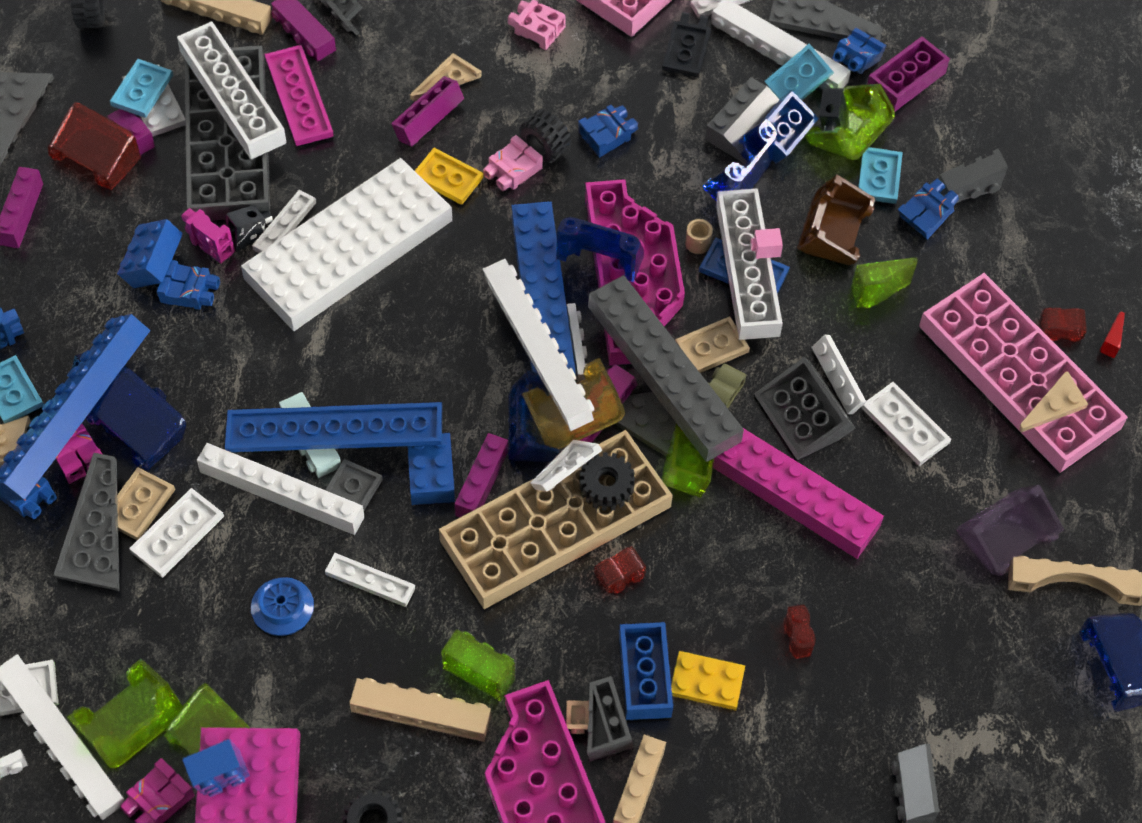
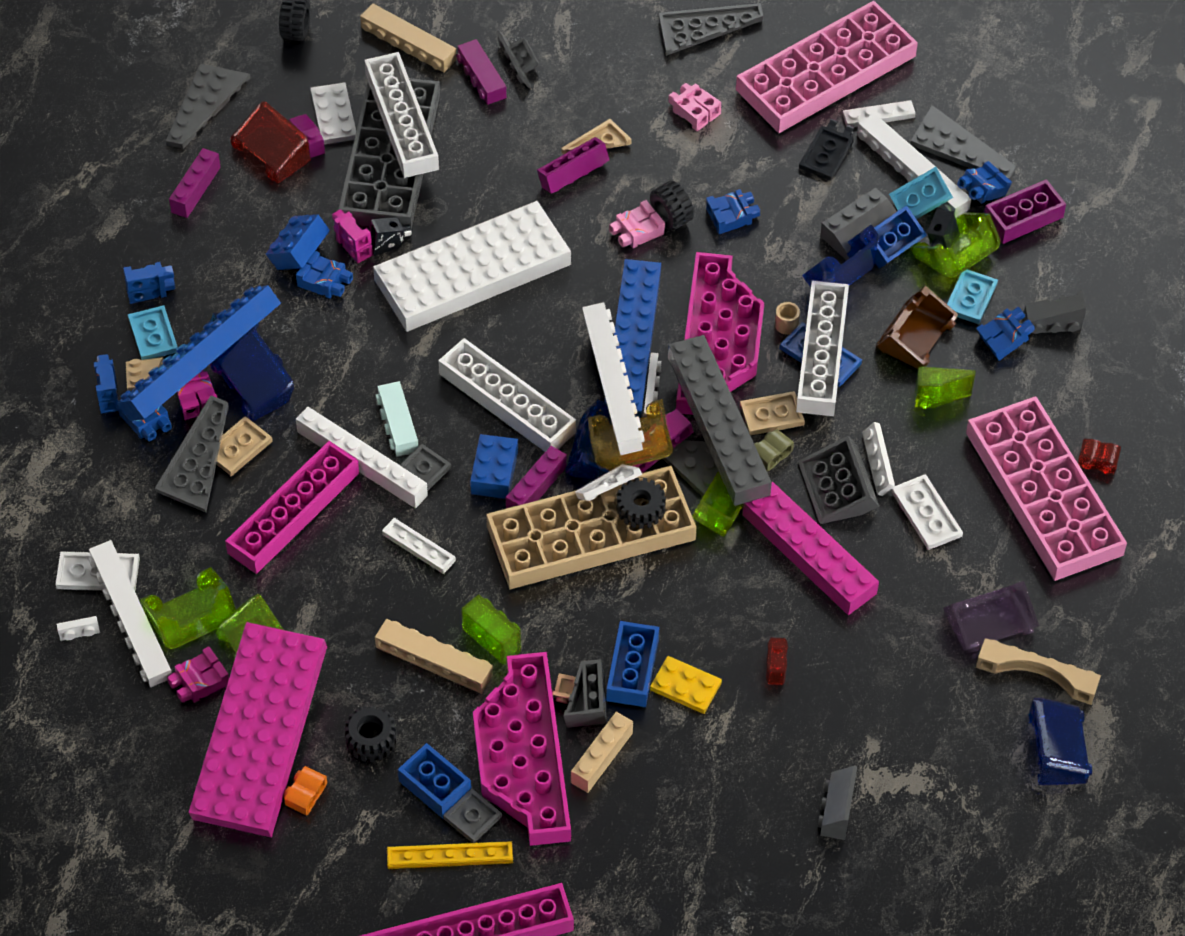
camera: 15 degrees right, 5 degrees down
(141, 88) = (324, 100): medium azure plate -> none
(176, 532) = (263, 475): white plate -> none
(216, 566) = (292, 507): none -> dark pink brick
(216, 768) = (250, 649): blue brick -> none
(282, 606) = (339, 551): blue piece -> none
(286, 220) = (425, 235): white plate -> none
(299, 95) = (462, 131): dark pink plate -> none
(334, 427) = (419, 414): blue plate -> none
(419, 380) = (507, 396): none -> white brick
(449, 175) = (577, 225): yellow plate -> none
(578, 234) = (672, 294): clear blue windscreen -> none
(620, 570) = (635, 580): clear red brick -> none
(767, 243) = (840, 332): bright pink brick -> none
(1060, 401) = (1067, 517): tan wing -> none
(1113, 340) = (1141, 475): red slope -> none

